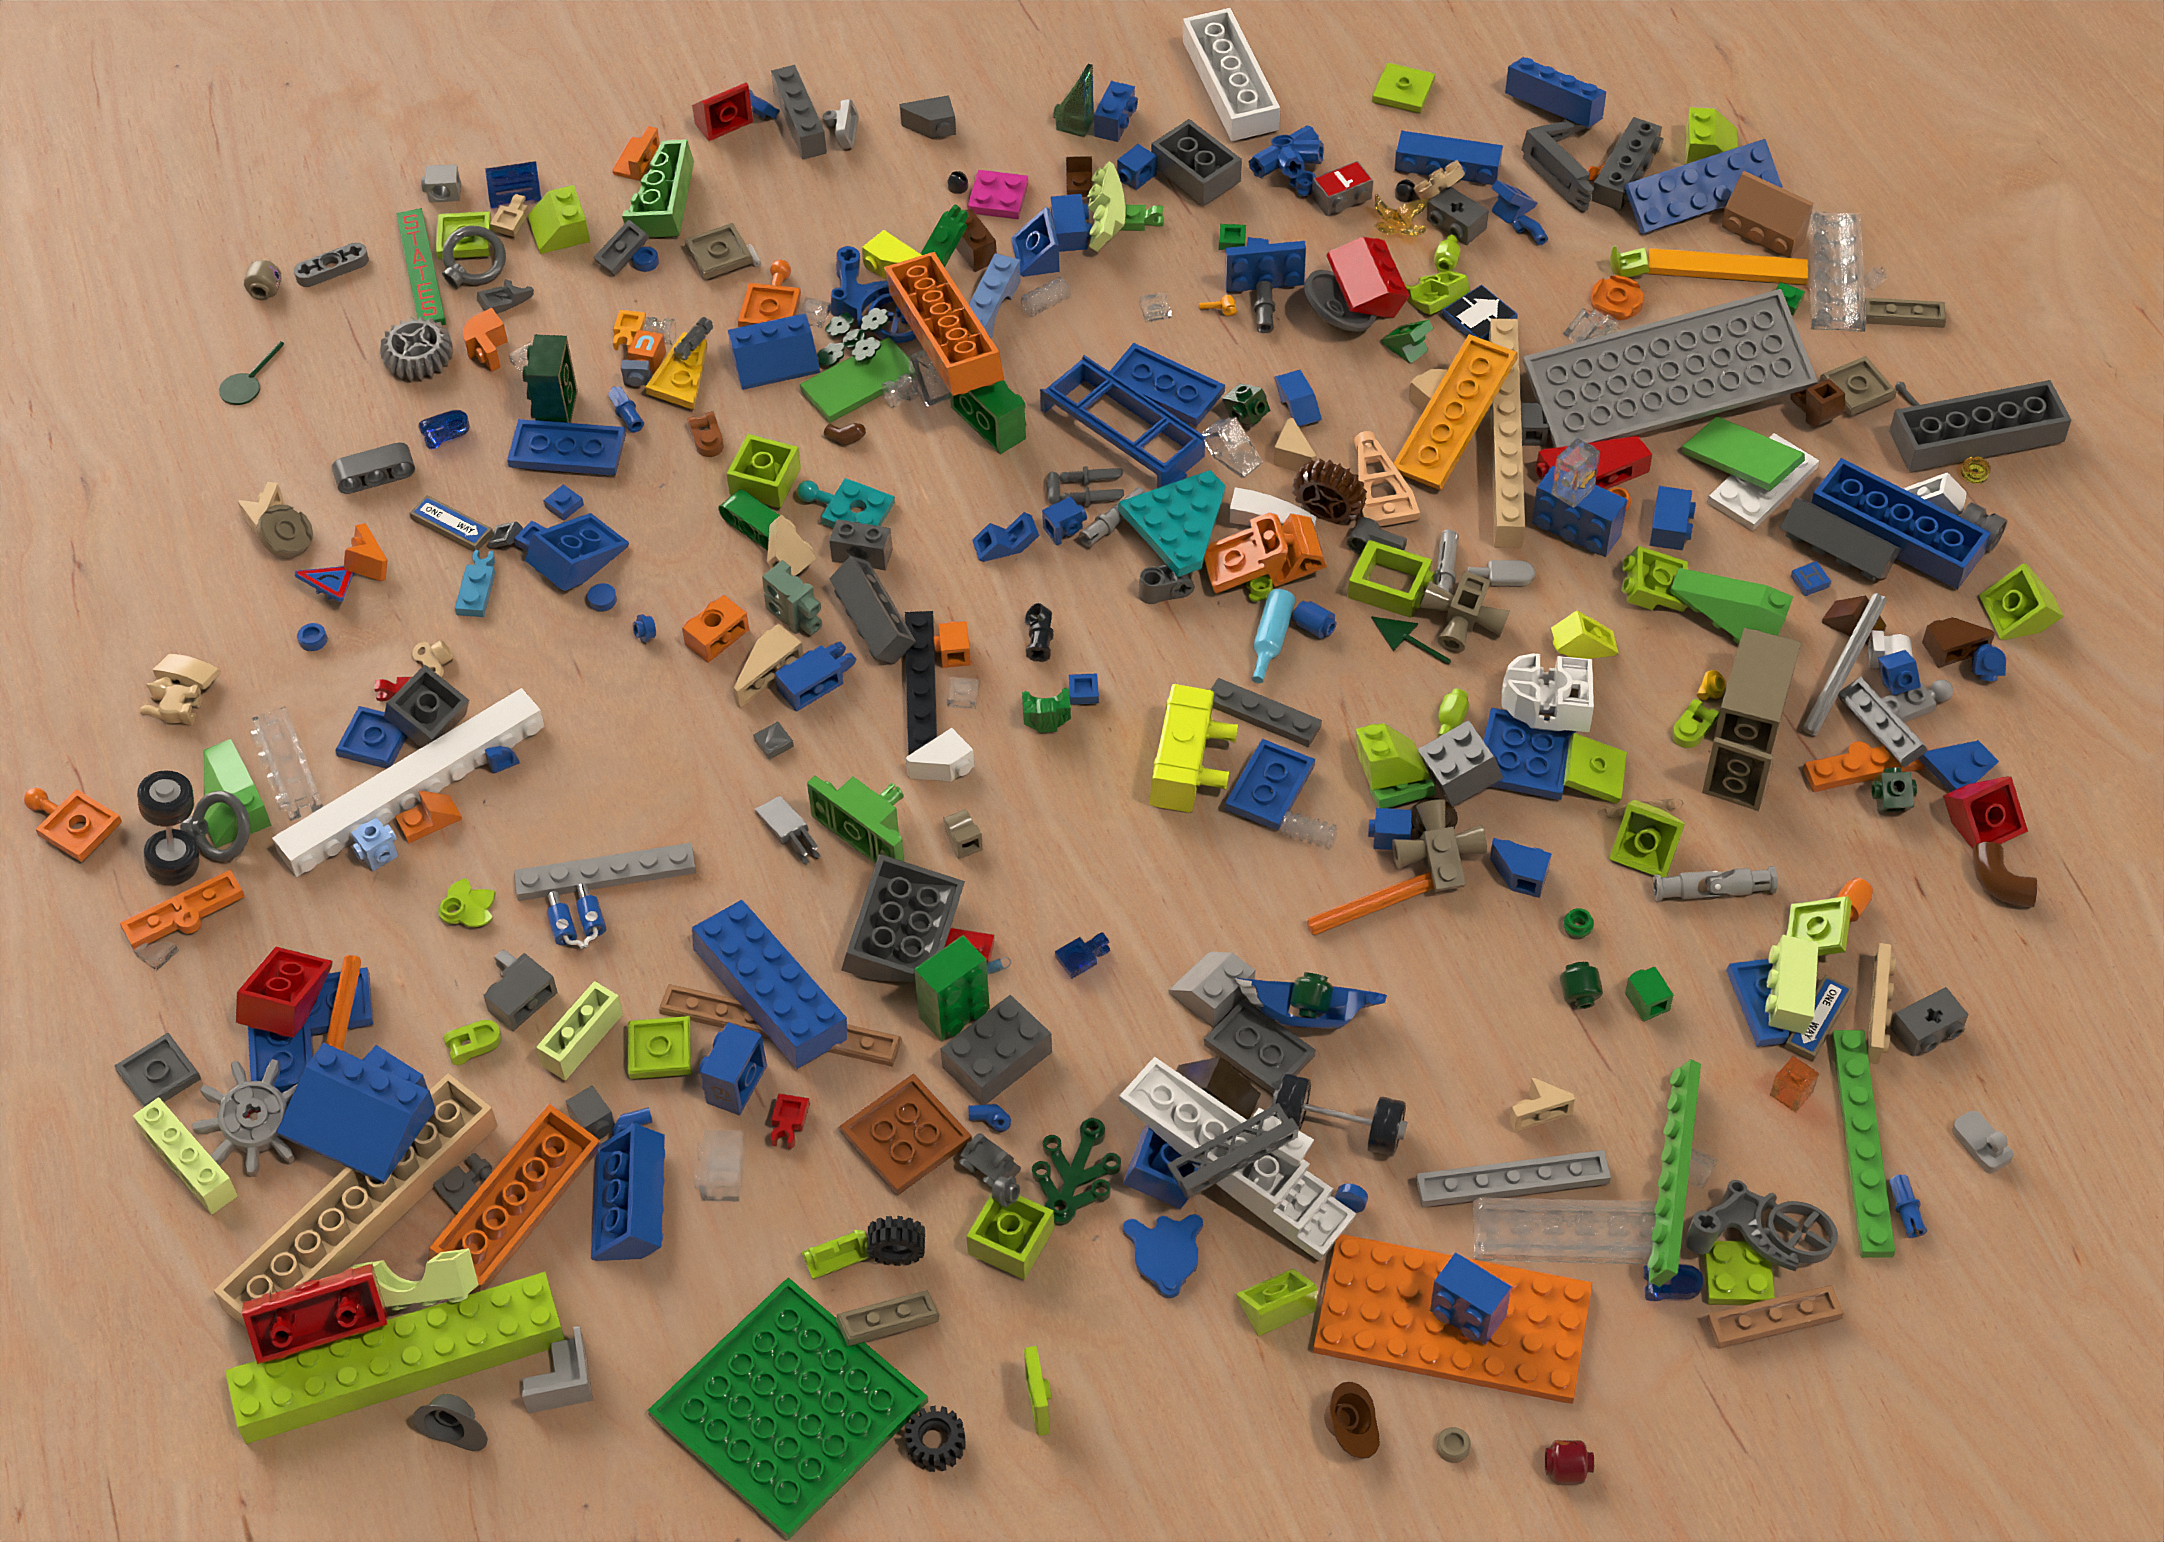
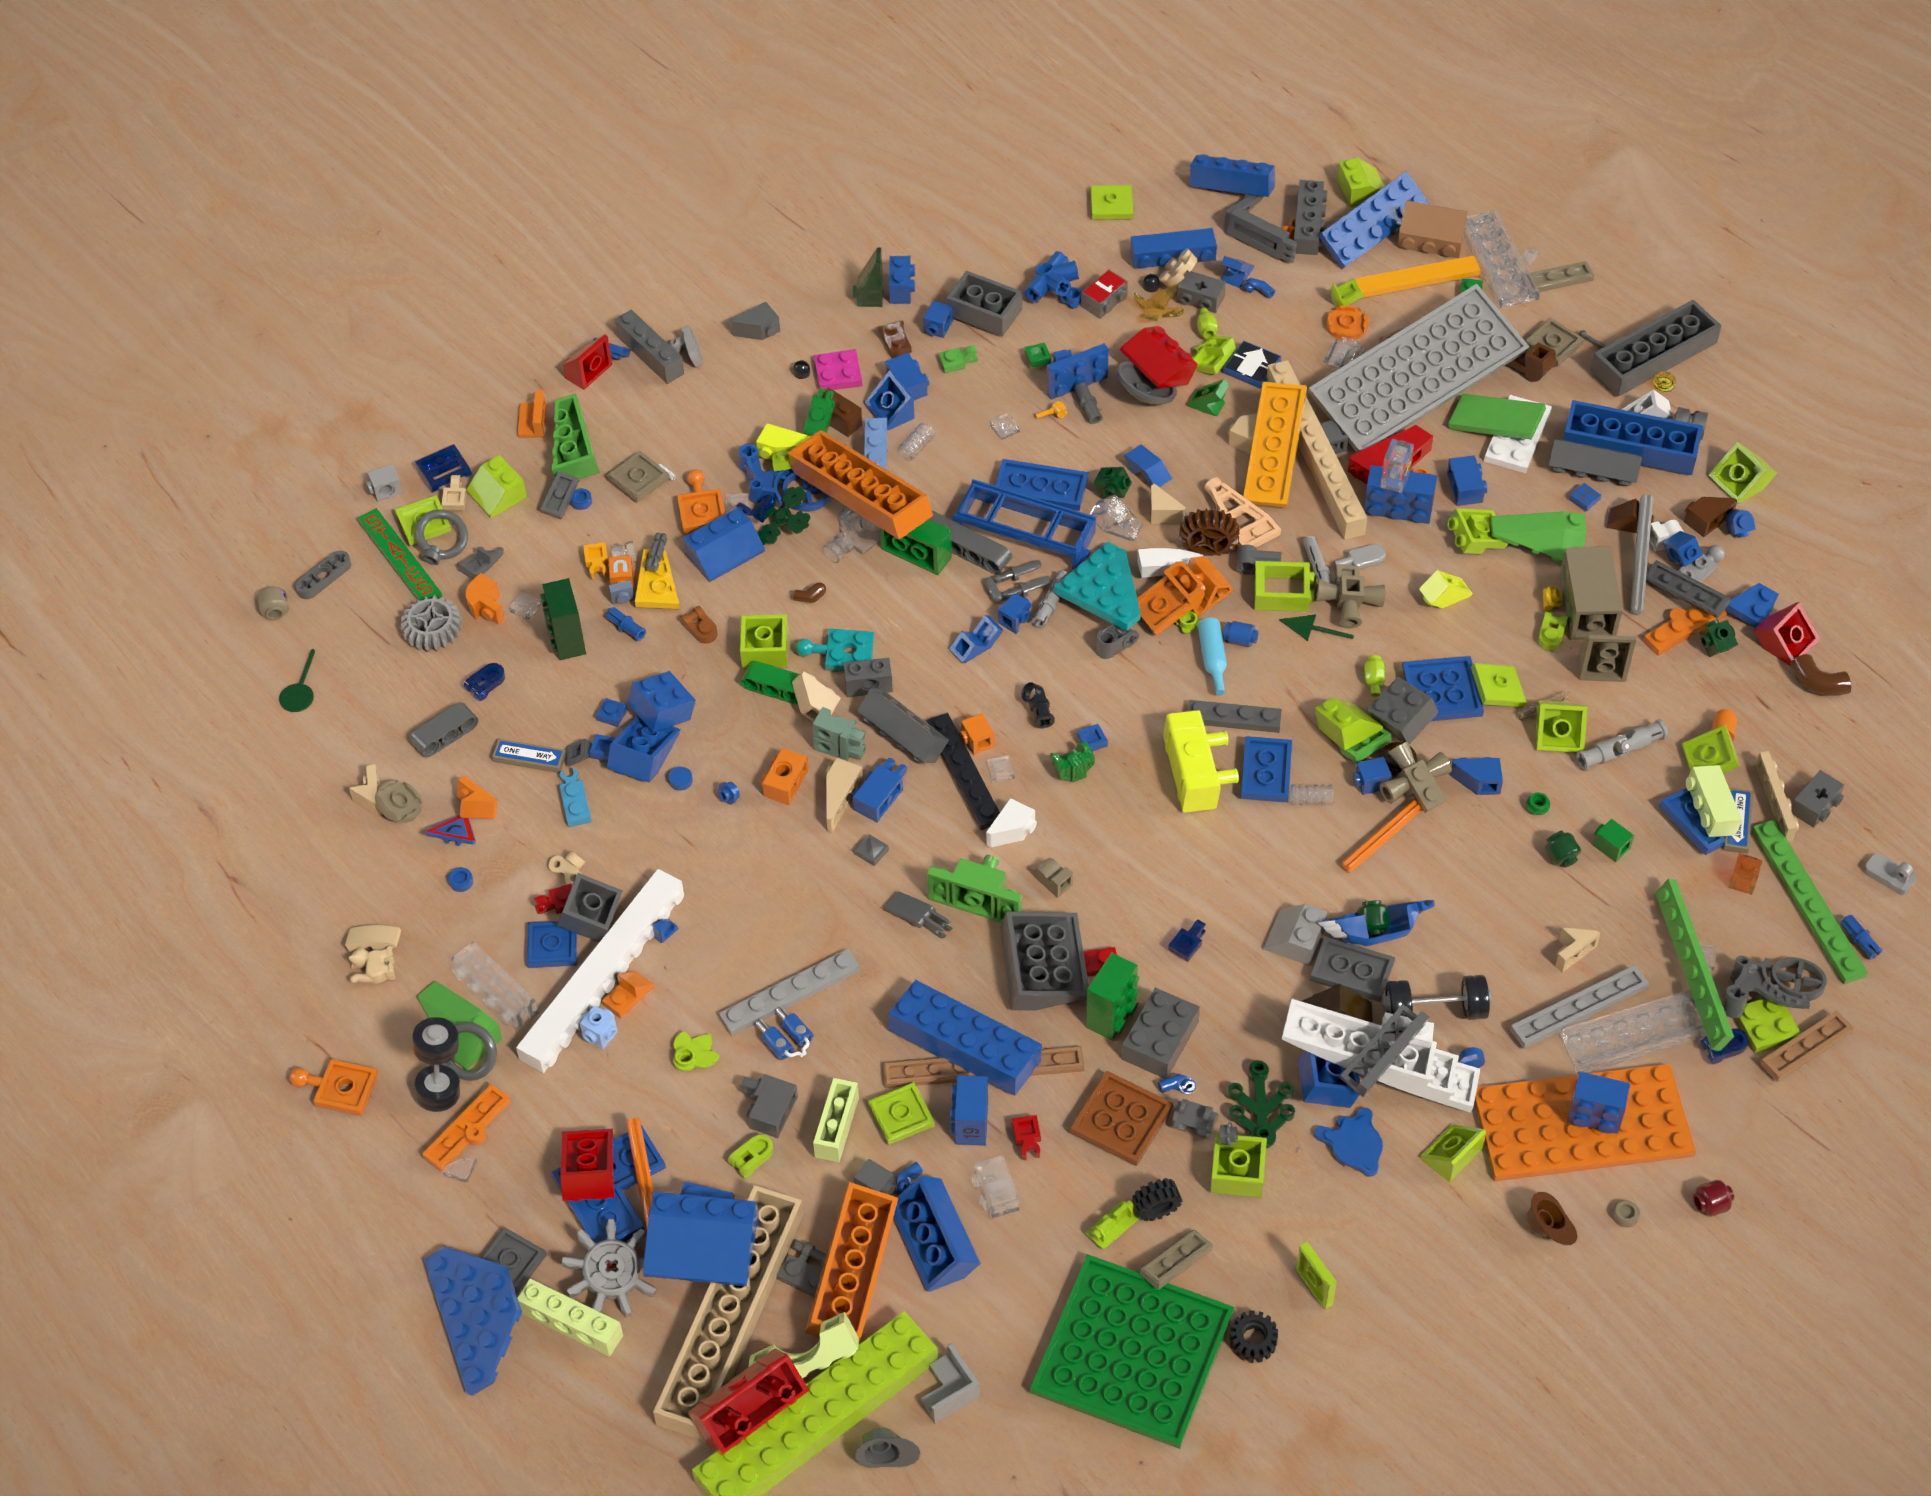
camera: 20 degrees left, 0 degrees up
(89, 1115) = (477, 1312): none -> blue plate
(566, 447) = (593, 667): blue plate -> none
(617, 504) = (661, 701): none -> blue brick
(841, 319) = (765, 503): none -> clear blue piece
(854, 382) = (797, 553): bright green tile -> none
(877, 277) = (781, 460): none -> lime plate
(1049, 427) = (974, 546): none -> dark grey beam
(1108, 206) = (932, 355): yellowish green slope -> none
(1231, 74) = (977, 226): white brick -> none
(1527, 695) = (1432, 647): white connector -> none

